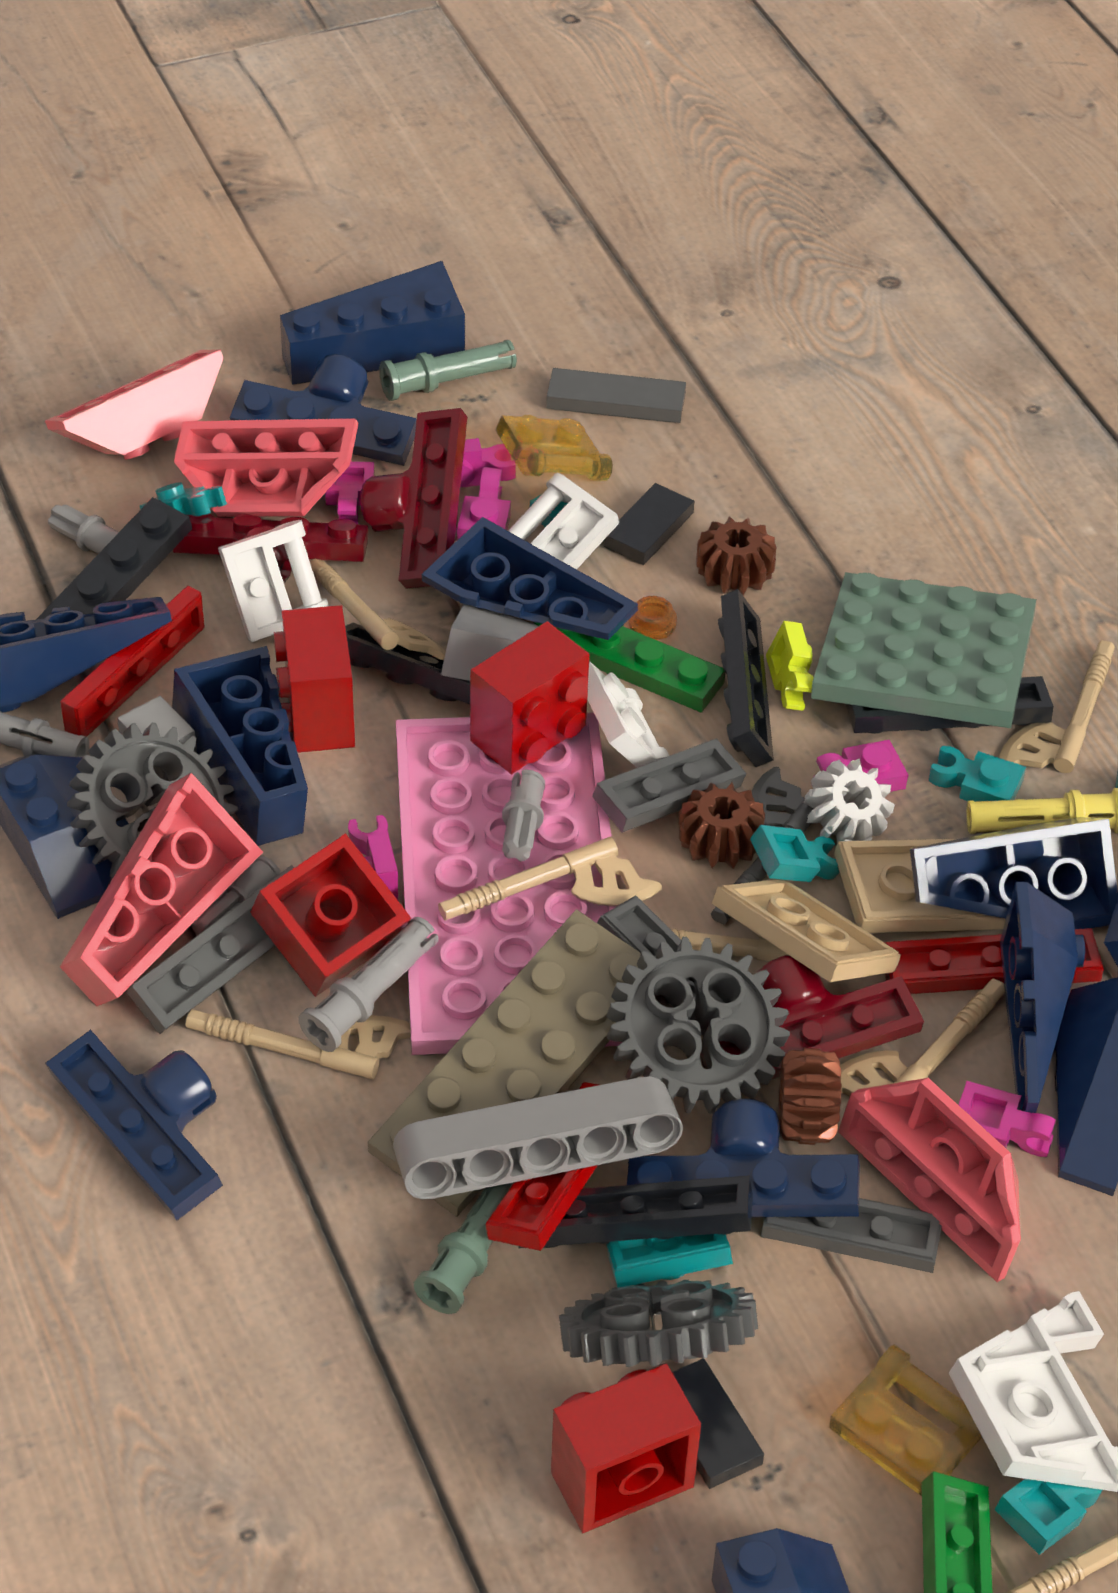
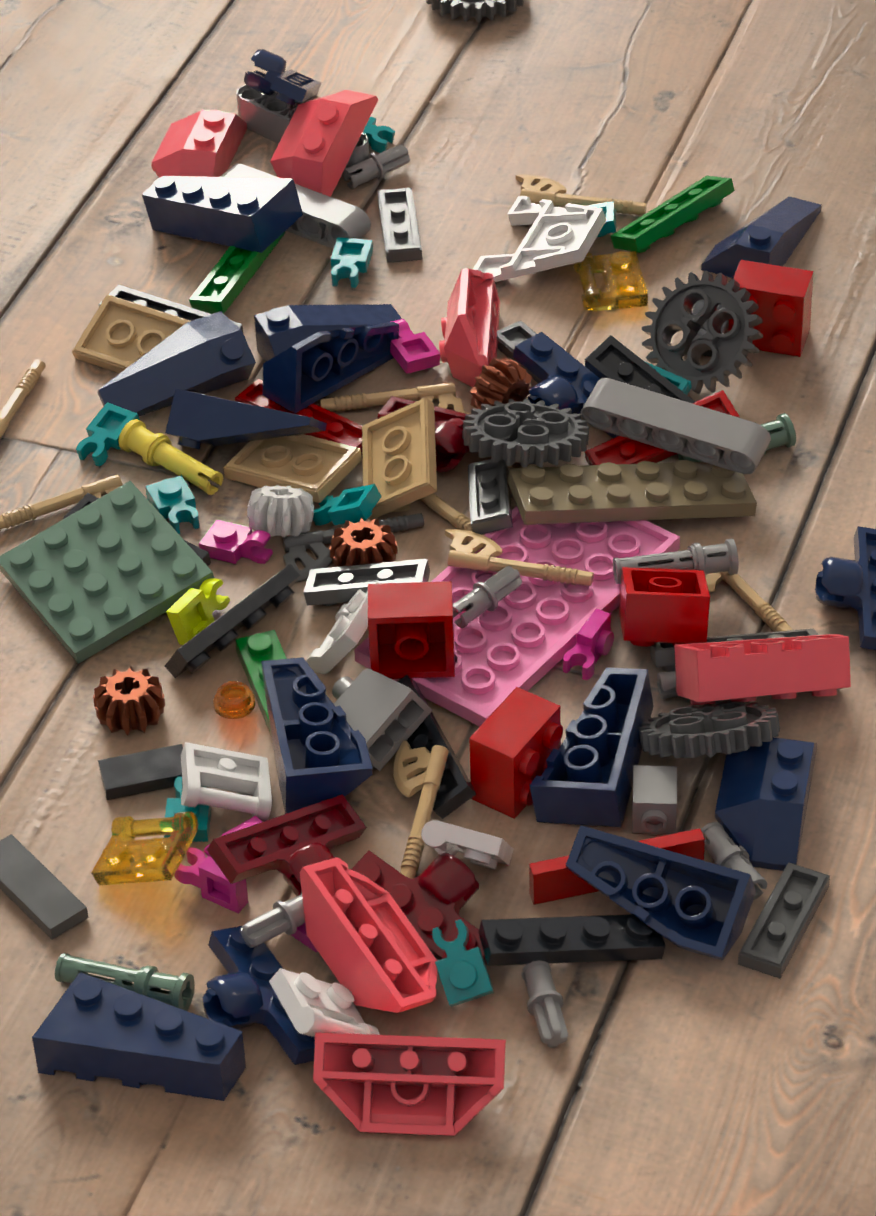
camera: 135 degrees left, 5 degrees down
(270, 392) = (318, 1005): none -> white plate
(366, 441) = (283, 918): none -> light grey axle

